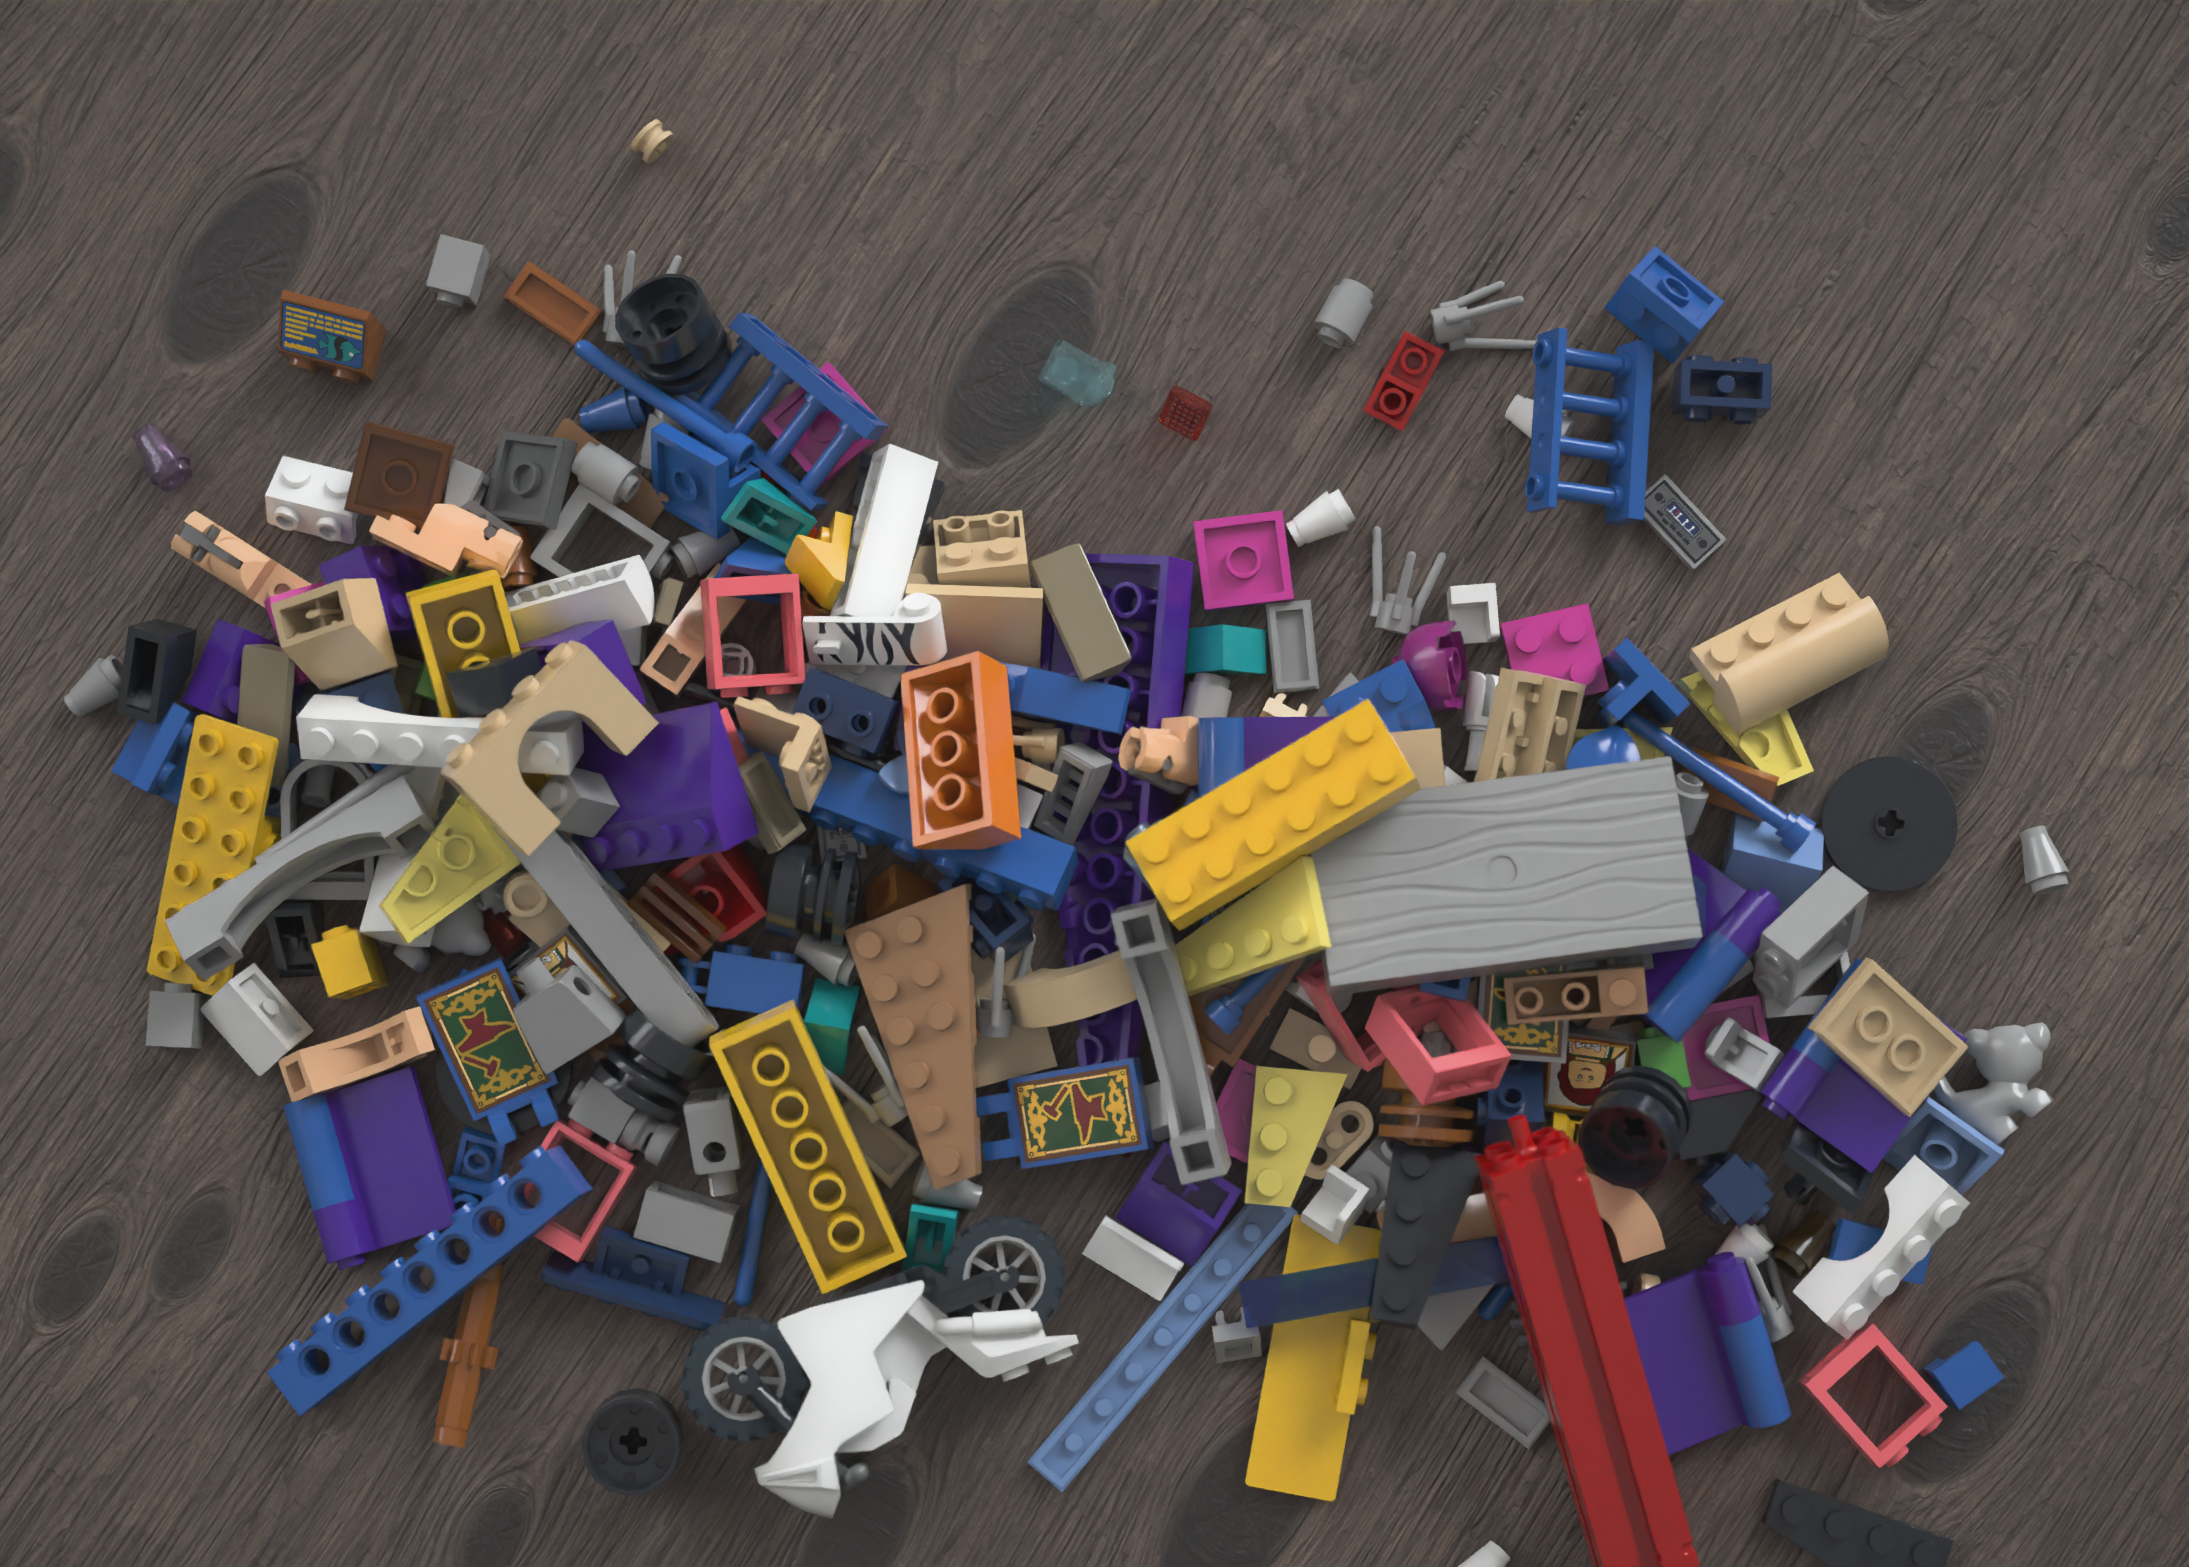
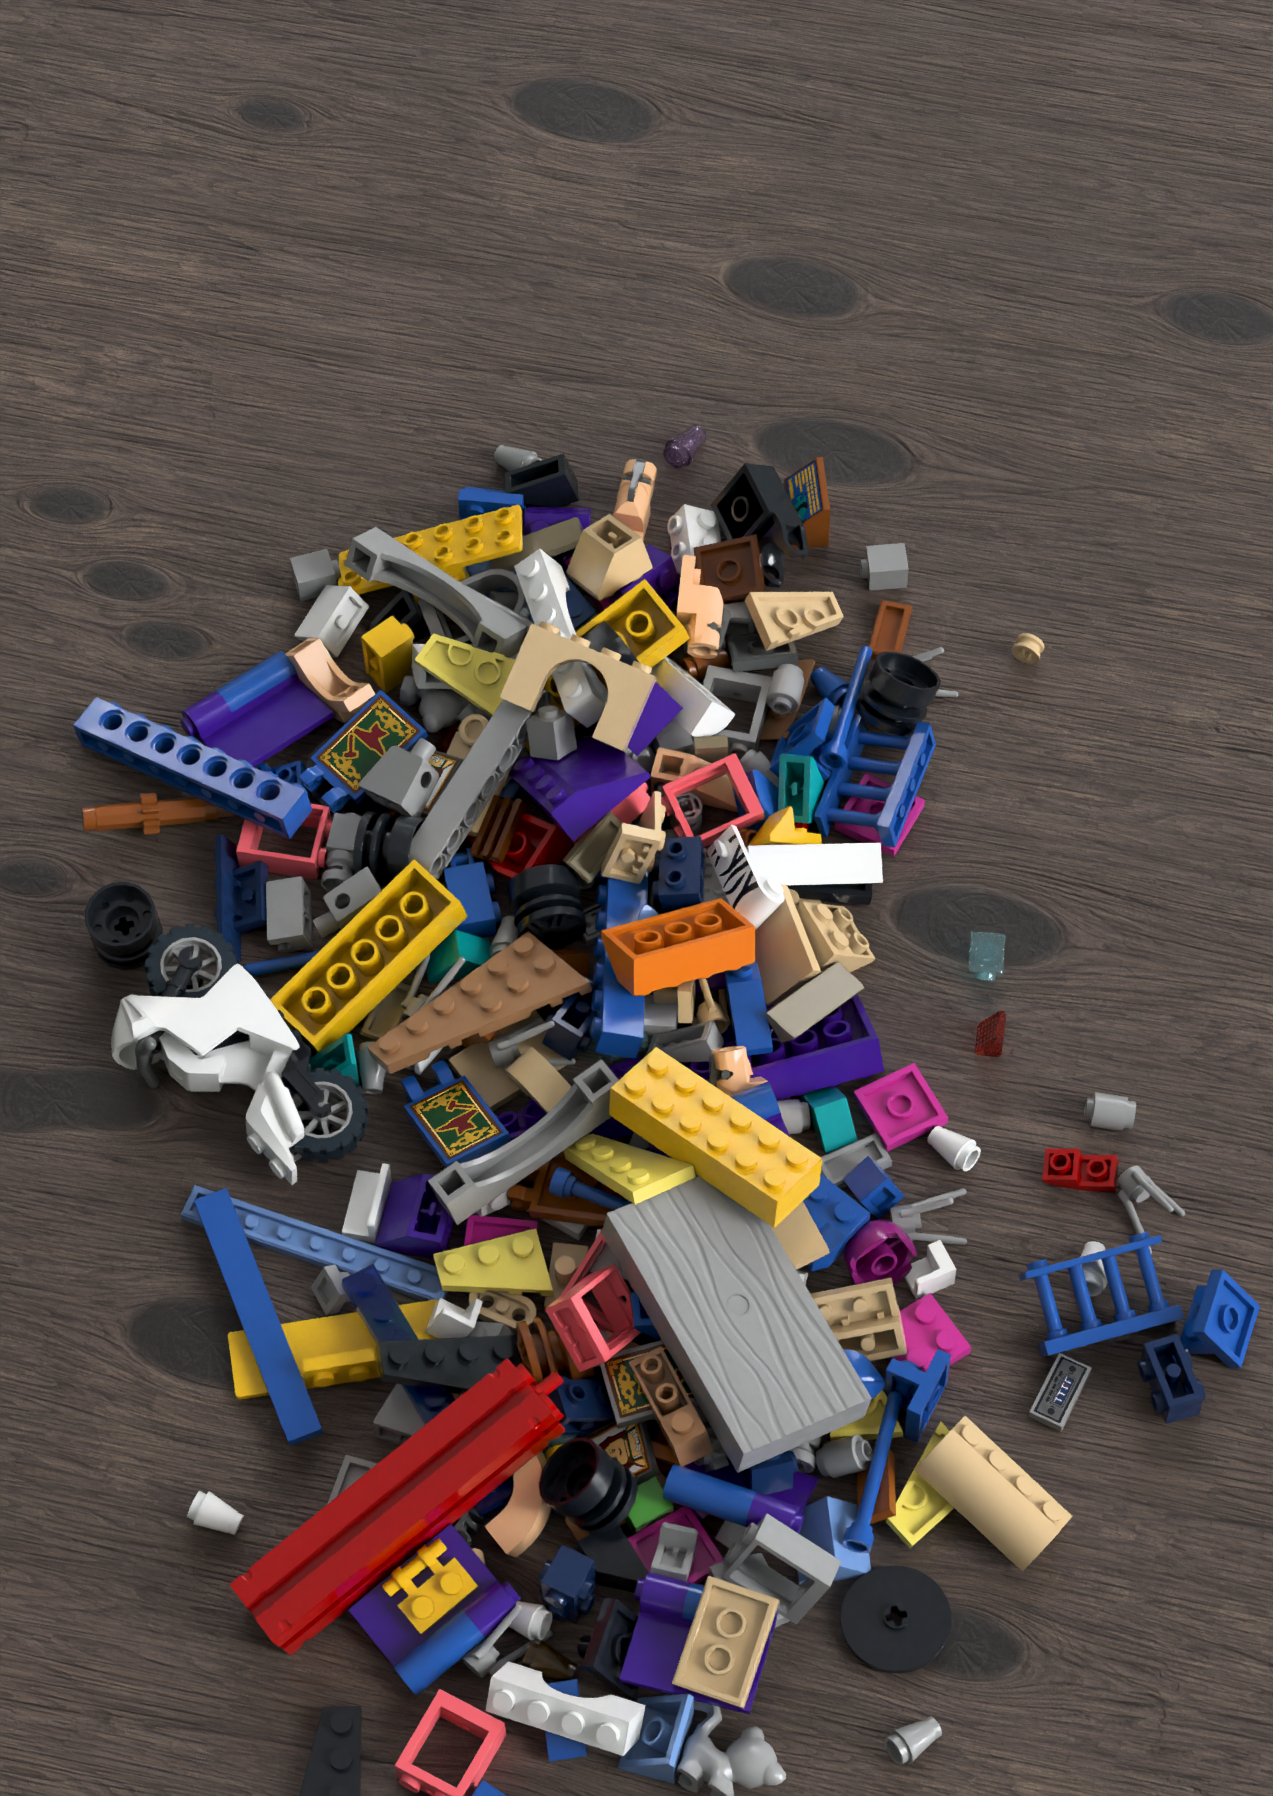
camera: 70 degrees right, 25 degrees down
(322, 402) = (761, 506): none -> black brick
(494, 422) = (792, 615): none -> tan wing
(1240, 1442) = (258, 1317): none -> blue tile
(1341, 636) = (873, 1187): none -> blue panel
(1691, 1349) = (435, 1596): none -> yellow plate

